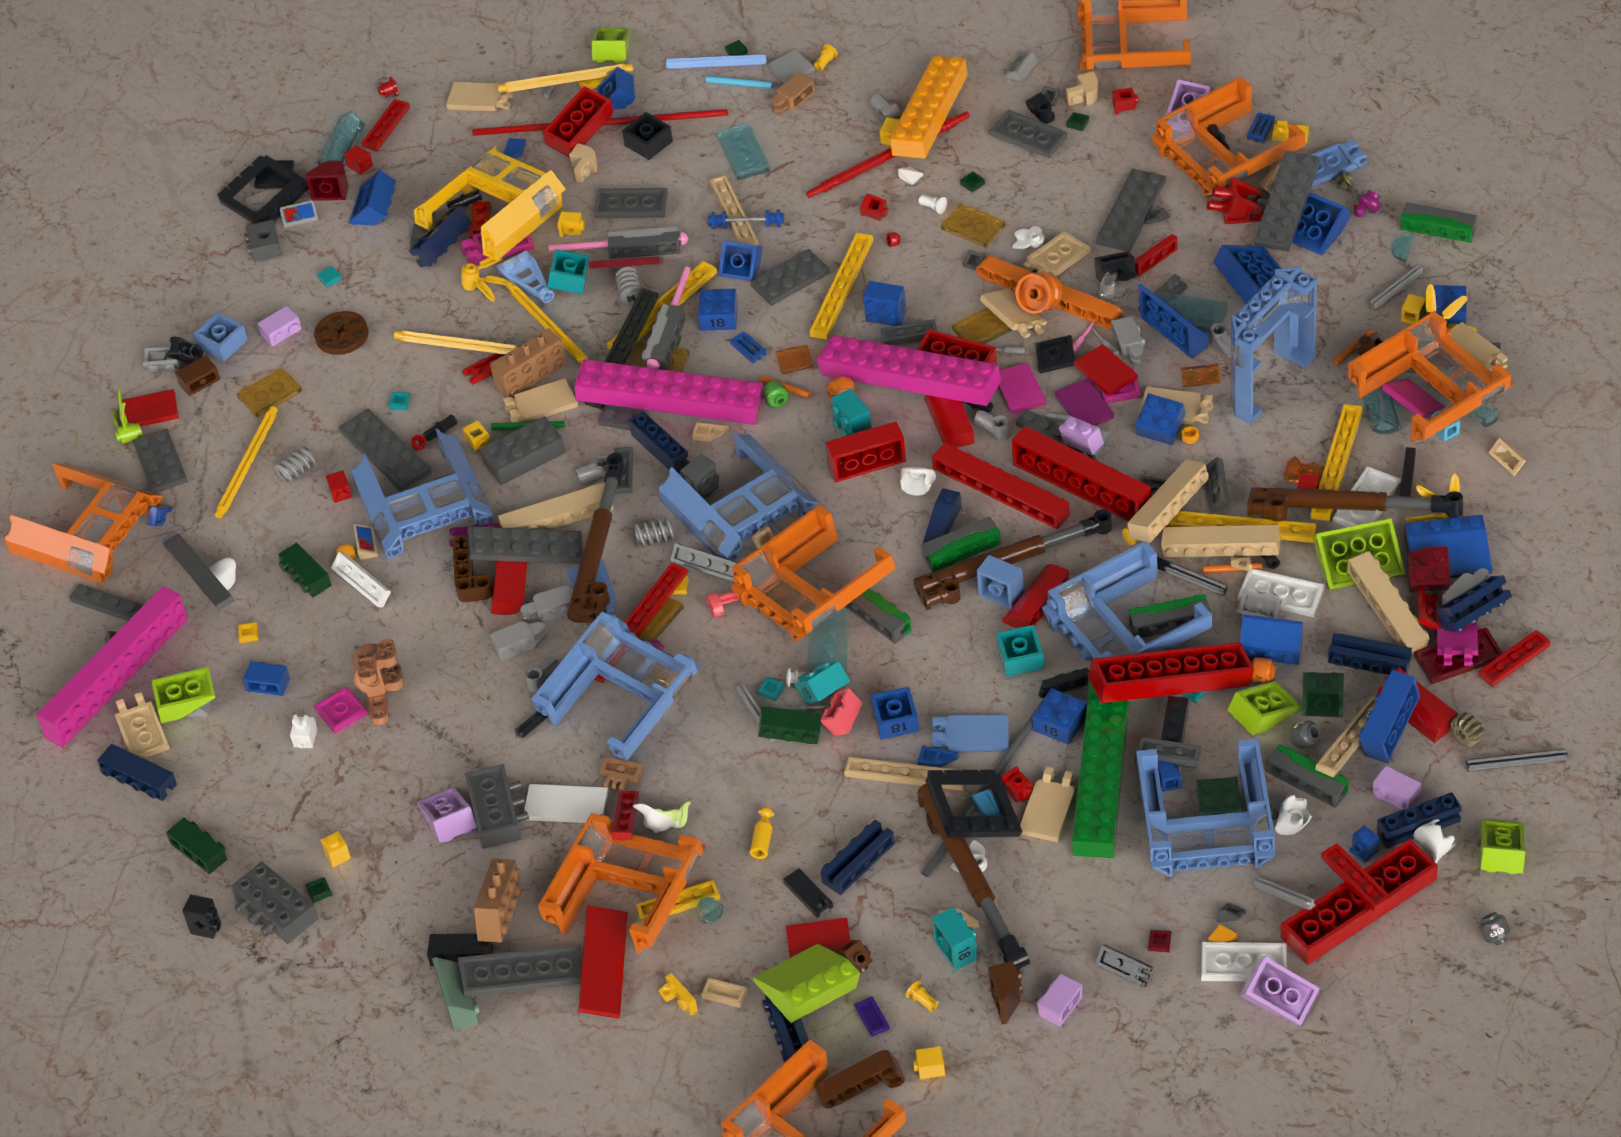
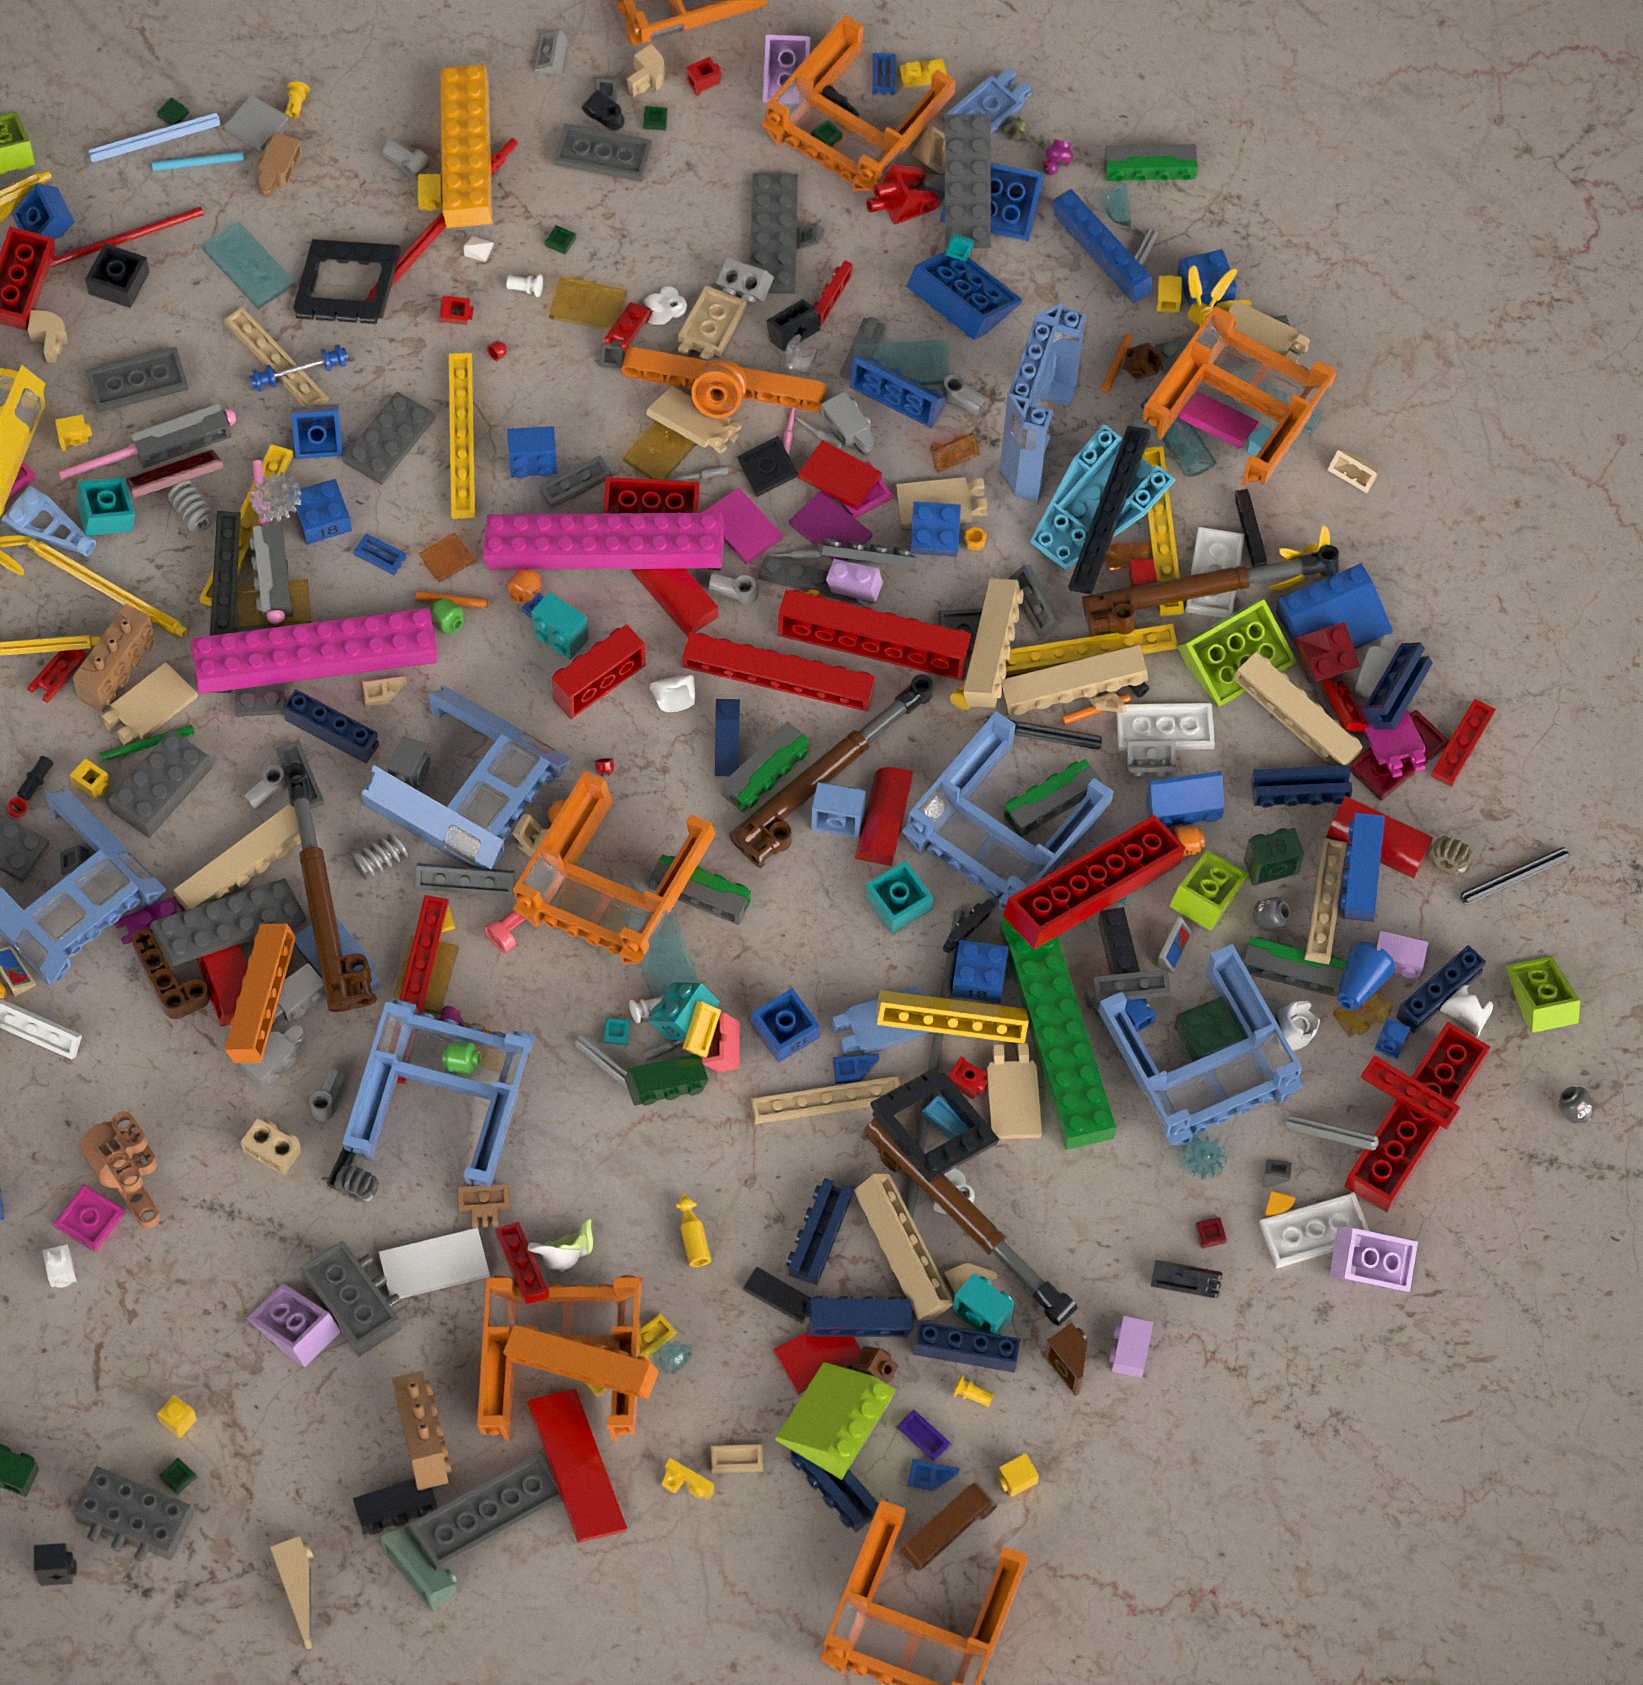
camera: 30 degrees left, 15 degrees up
(367, 976) = (295, 1571): none -> tan slope
(487, 696) = (267, 1151): none -> tan brick
(523, 592) = (260, 993): none -> orange brick
(533, 733) = (356, 1183): none -> dark grey gear
(631, 882) = (581, 1361): none -> orange brick
(643, 667) = (461, 1057): none -> bright green head
(687, 289) = (275, 496): none -> clear gear
(806, 193) = (346, 310): none -> black hinge
(827, 694) = (701, 1029): none -> yellow tile
(846, 515) = (604, 765): none -> red hinge
(857, 919) = (859, 1317): none -> dark blue brick
(863, 1045) = (930, 1475): none -> blue tile
(914, 882) = (903, 1247): none -> tan brick
(931, 963) = (967, 1346): none -> dark blue brick
(994, 242) = (628, 325): none -> red hinge
(1021, 737) = (951, 1016): none -> yellow brick
(1092, 231) = (746, 278): none -> light grey brick
(1105, 422) = (857, 551): none -> dark grey plate
(1177, 886) = (1201, 1150): none -> clear light blue gear
(1199, 154) = (827, 133): none -> dark green tile
(1219, 738) = (1174, 946): none -> slope
(1263, 244) = (959, 247): none -> teal tile
(1293, 426) = (1078, 495): none -> medium azure wedge
(1297, 433) = (1109, 510): none -> black tile
(1349, 821) = (1359, 1020): none -> clear yellow bracket
(1358, 791) = (1363, 974): none -> blue cone
(1374, 266) = (1102, 246): none -> blue brick

